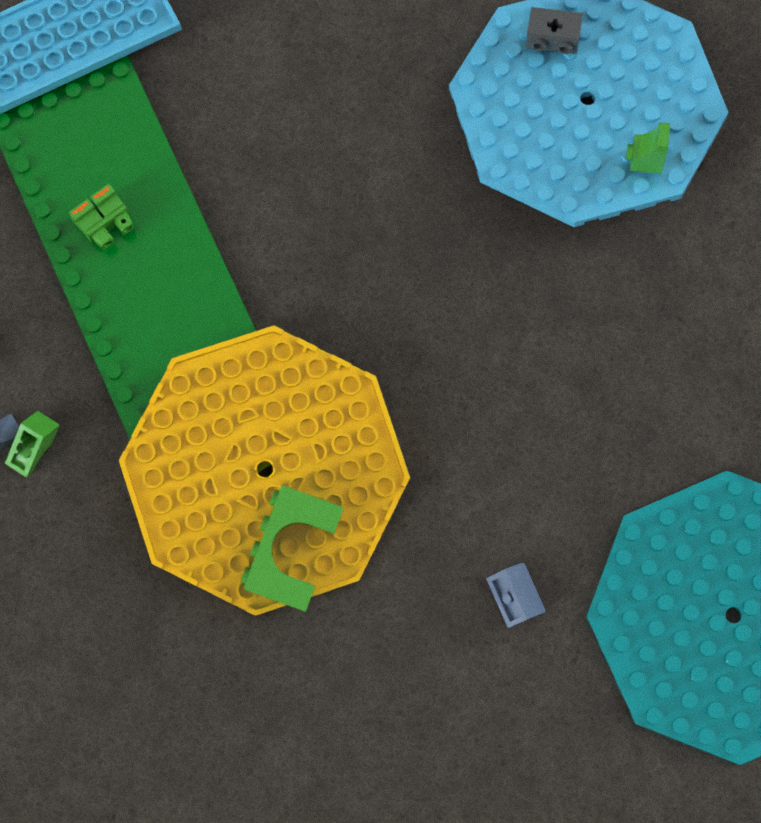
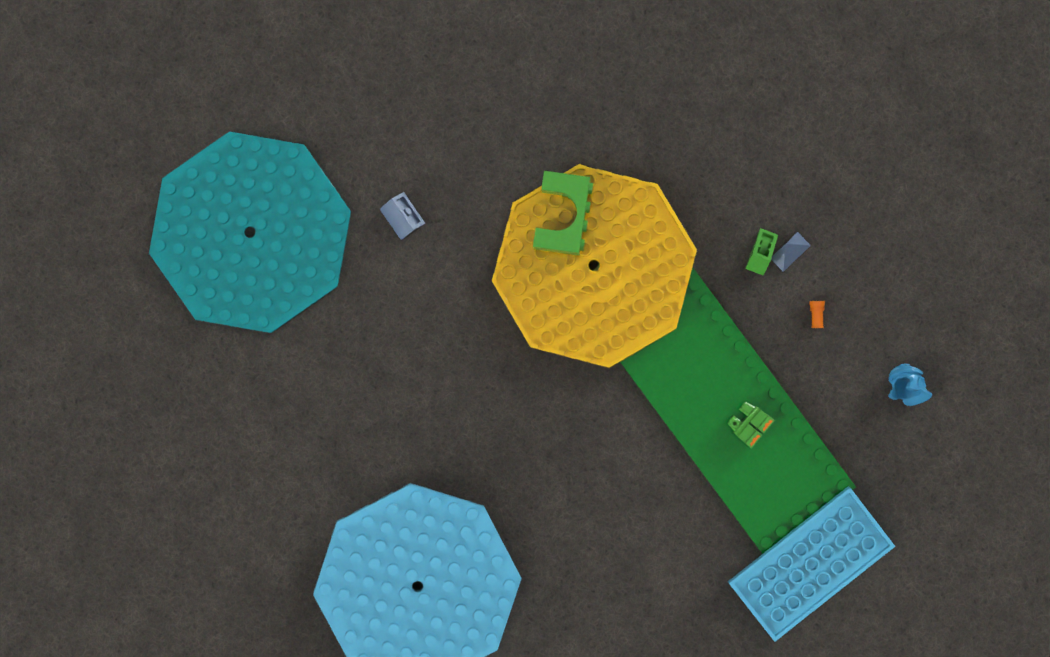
camera: 170 degrees right, 10 degrees up
(554, 30) = (461, 637): dark grey brick -> none
(649, 150) = (366, 545): bright green arch -> none

